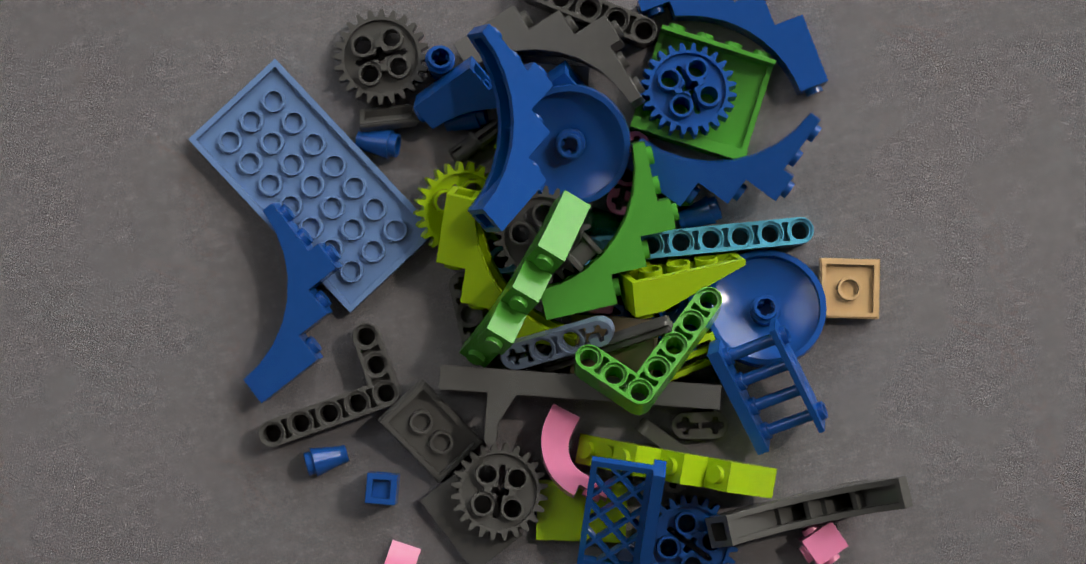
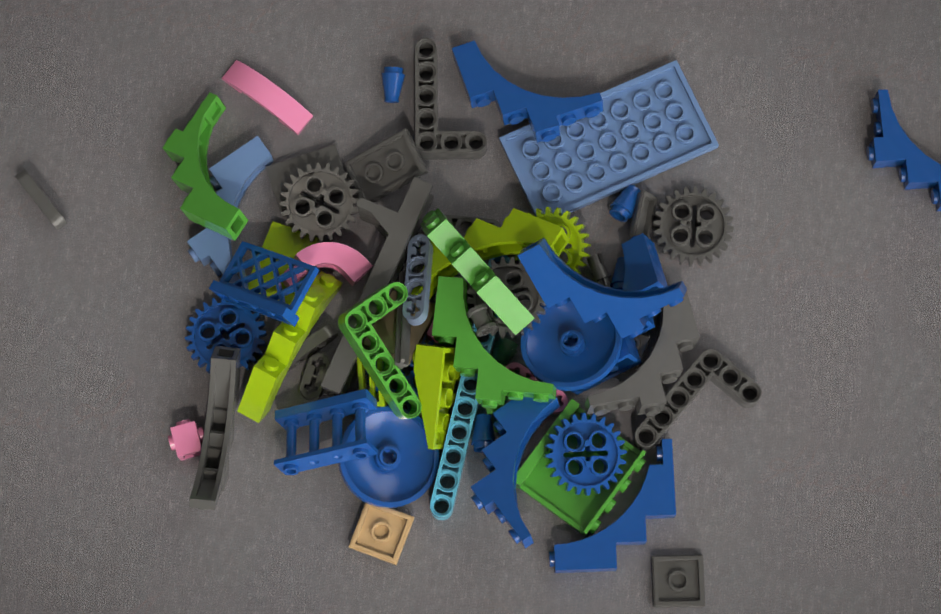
camera: 110 degrees right, 10 degrees down
(382, 488) = (354, 117): blue brick -> none
(439, 61) = (678, 264): blue cone -> none

